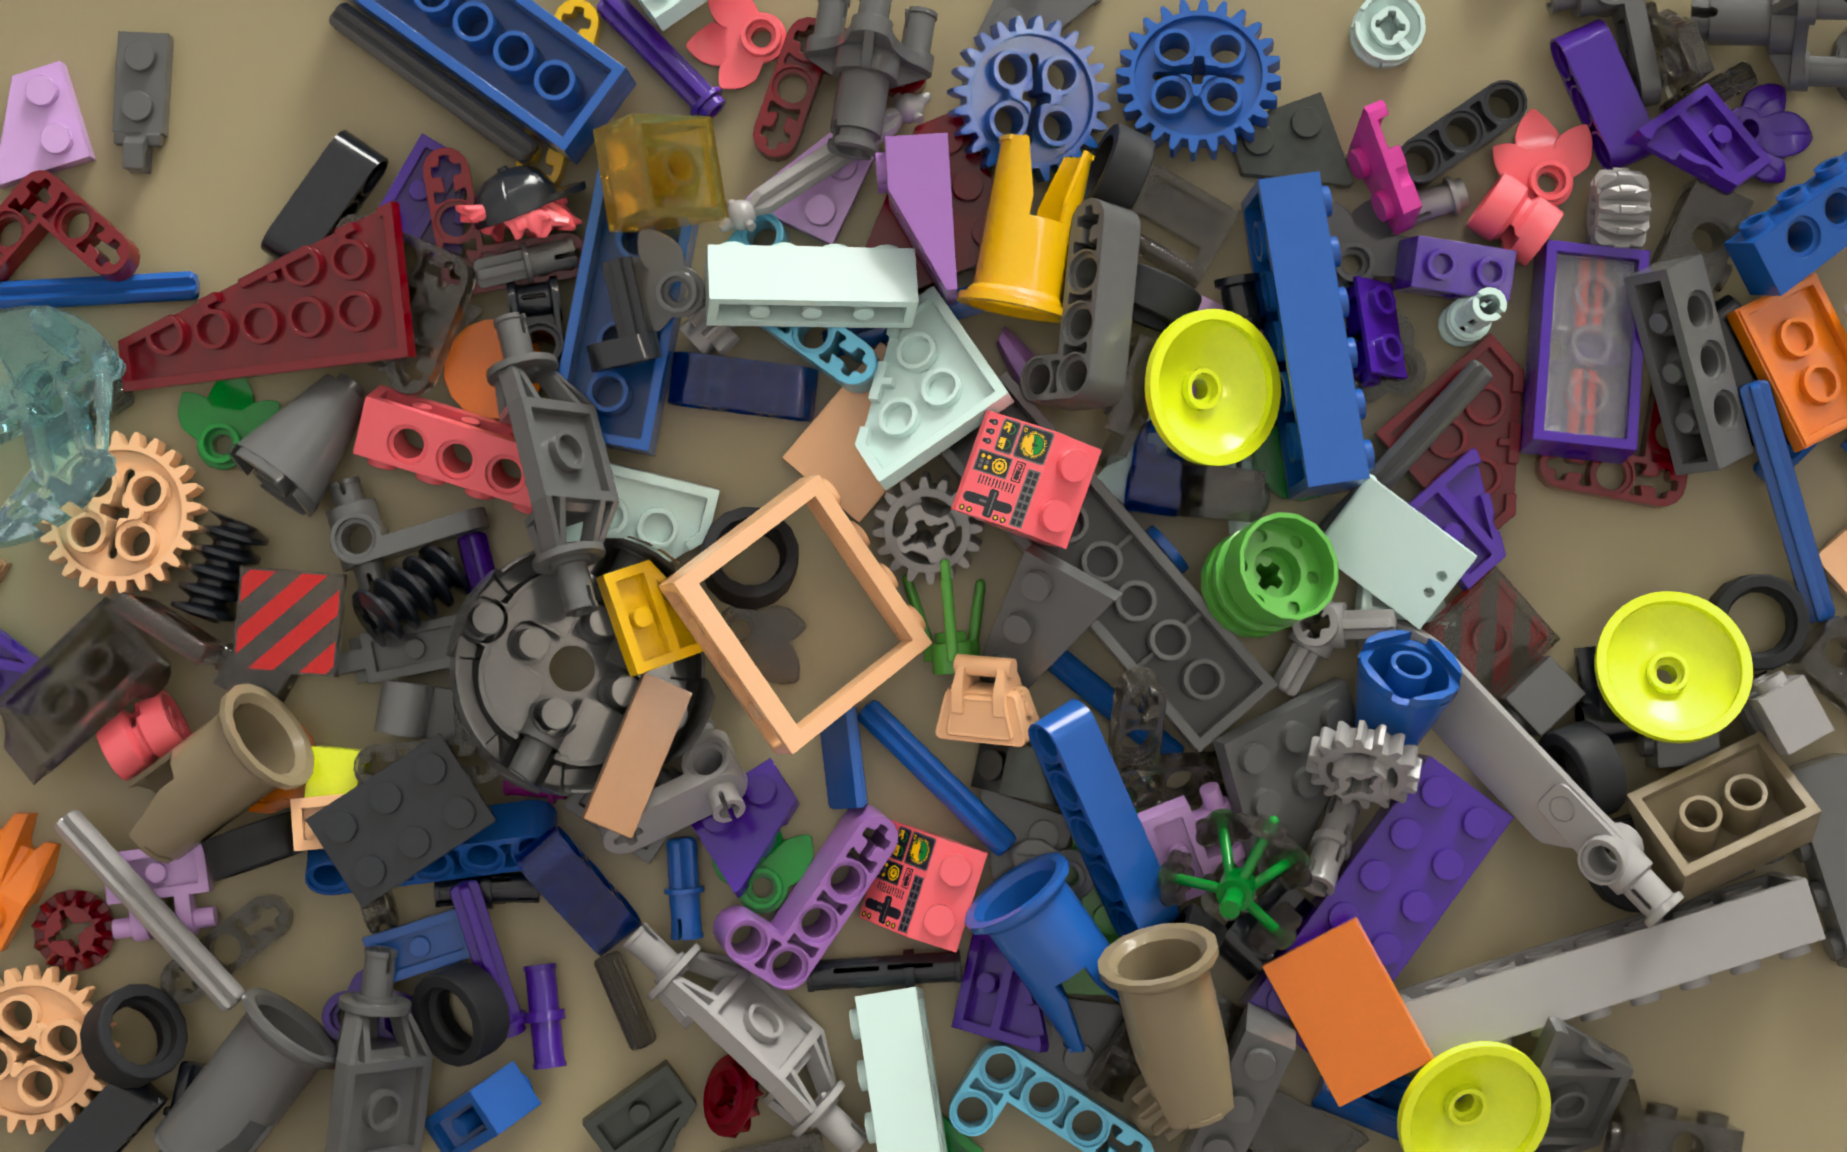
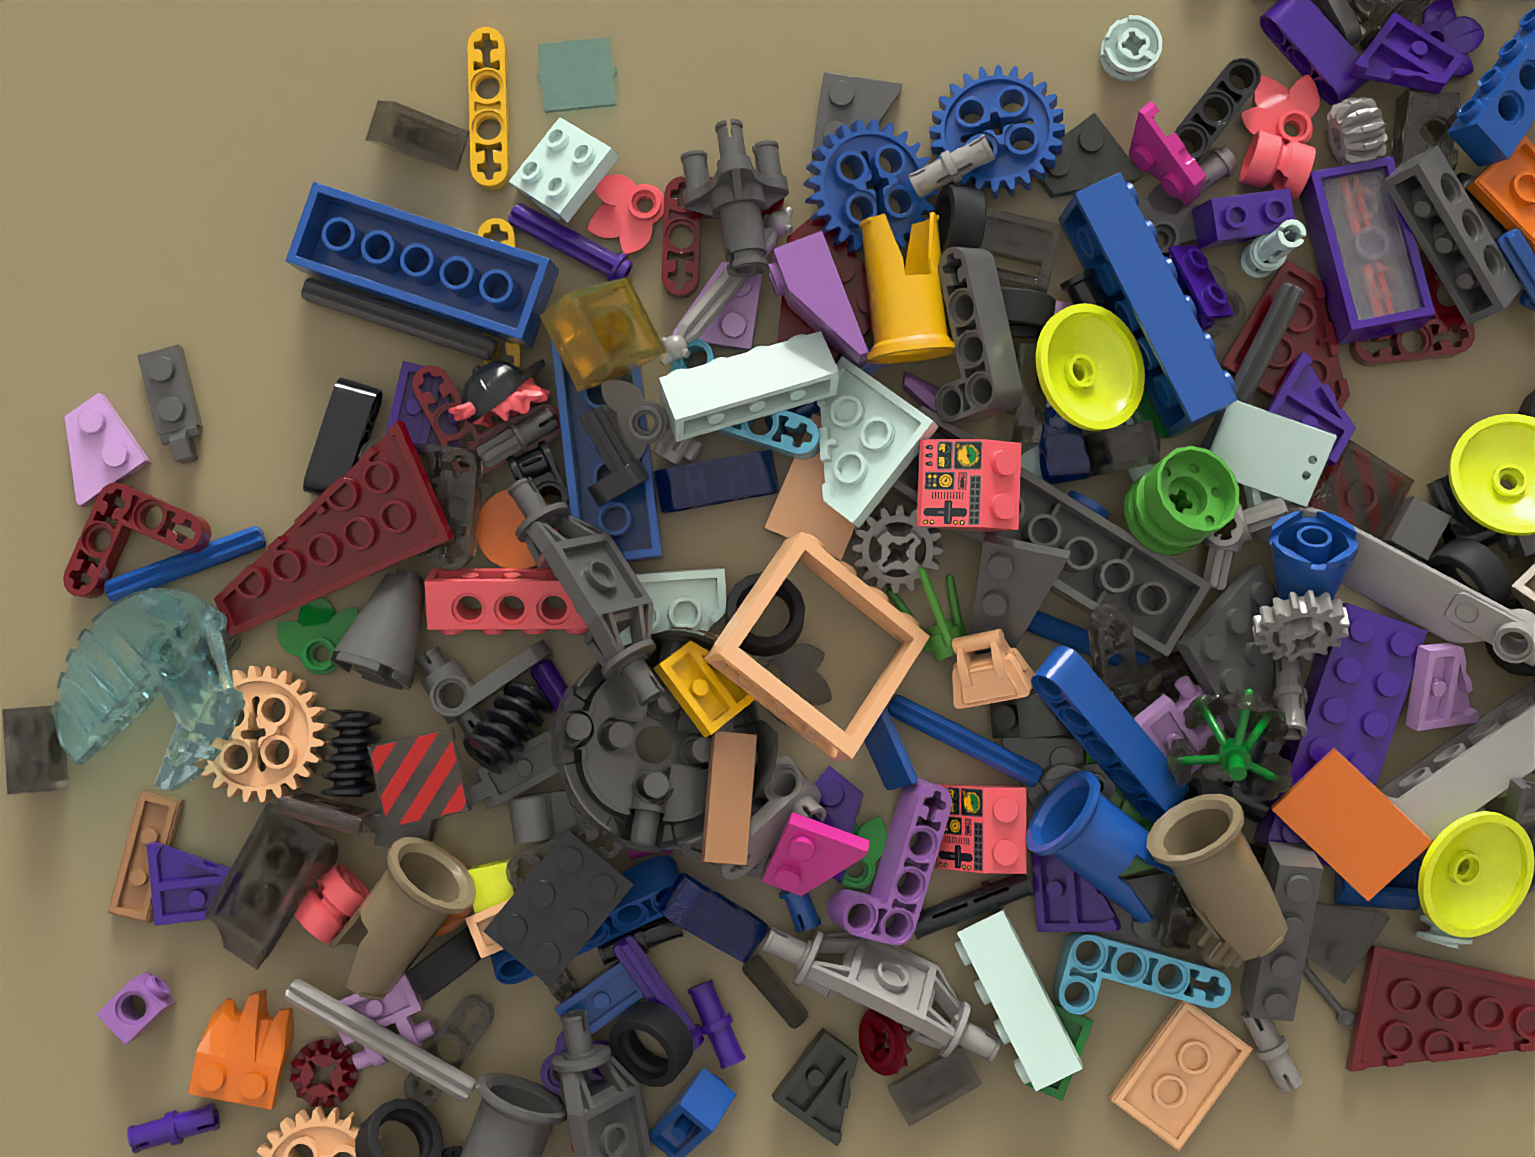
camera: 25 degrees left, 0 degrees up
(712, 851) = (811, 854): none -> dark pink wing
(1129, 104) = (951, 166): none -> light grey pin
(1509, 891) = (1440, 689): none -> lavender wing

